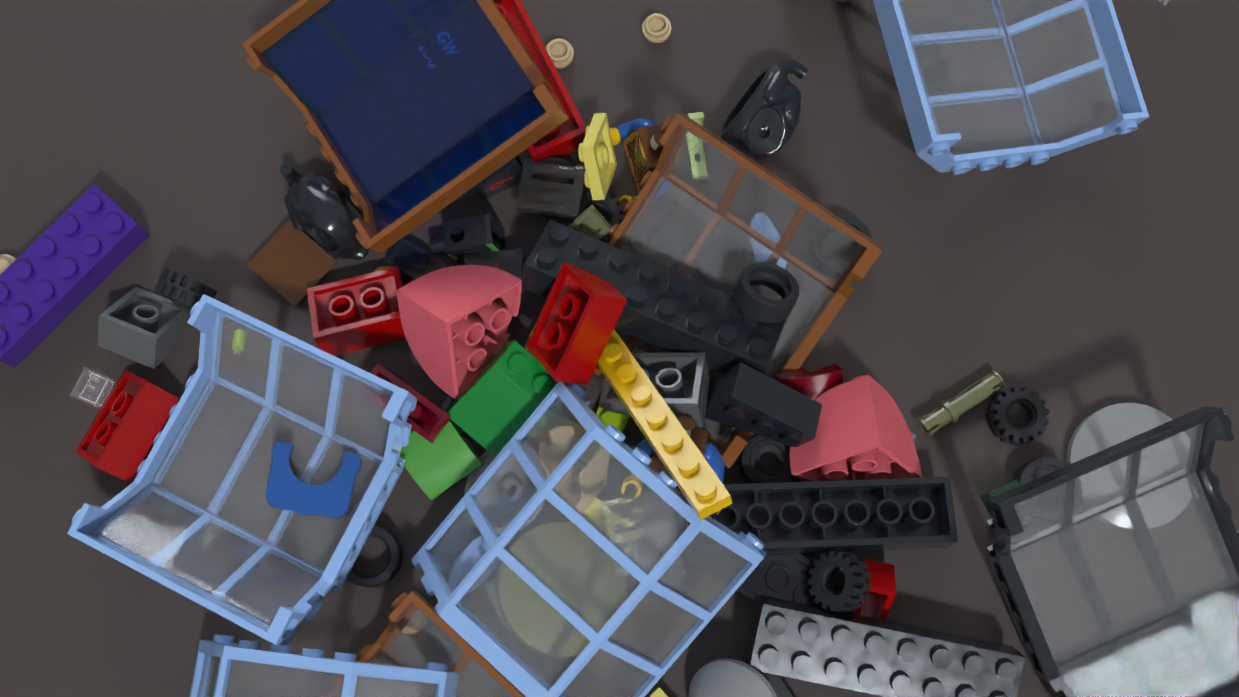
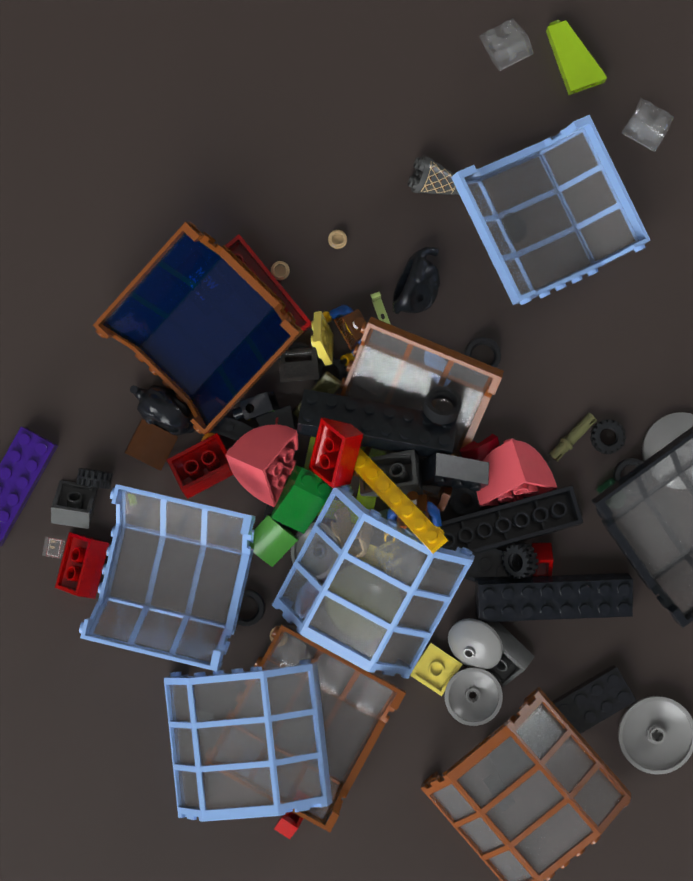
camera: 10 degrees left, 10 degrees up
(327, 499) = (192, 584): blue piece -> none
(427, 417) = (263, 522): dark red slope -> none

